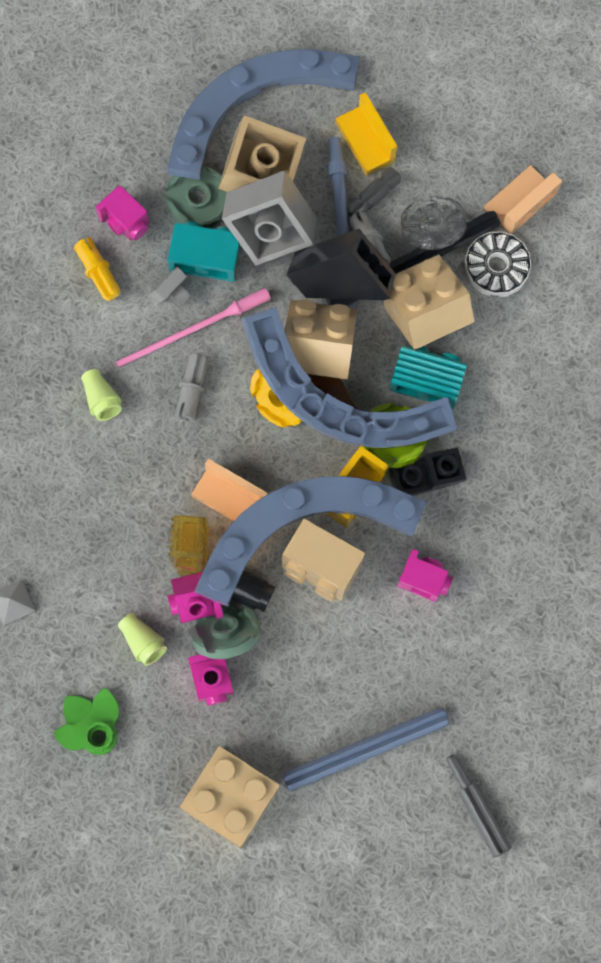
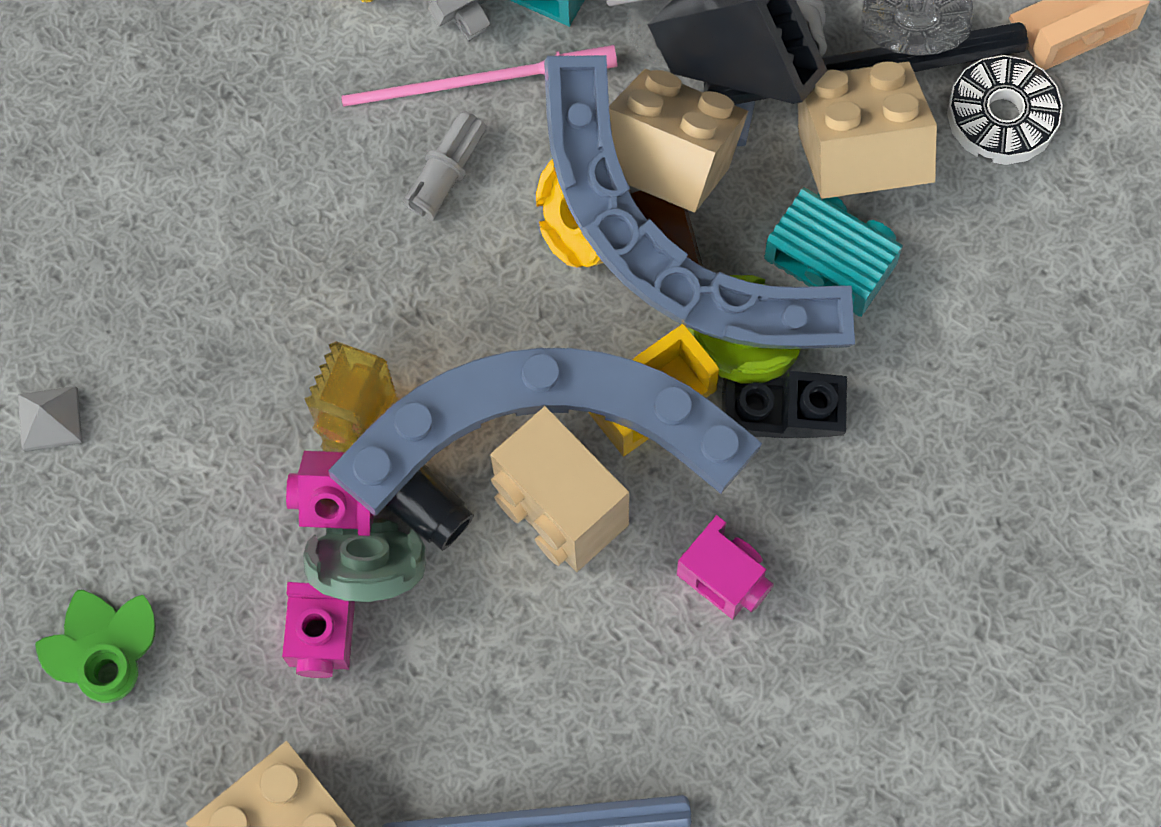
camera: 25 degrees right, 5 degrees down
(101, 397) = (297, 140): yellowish green cone -> none
(142, 640) = (230, 538): yellowish green cone -> none
(226, 491) = (440, 333): light nougat panel -> none

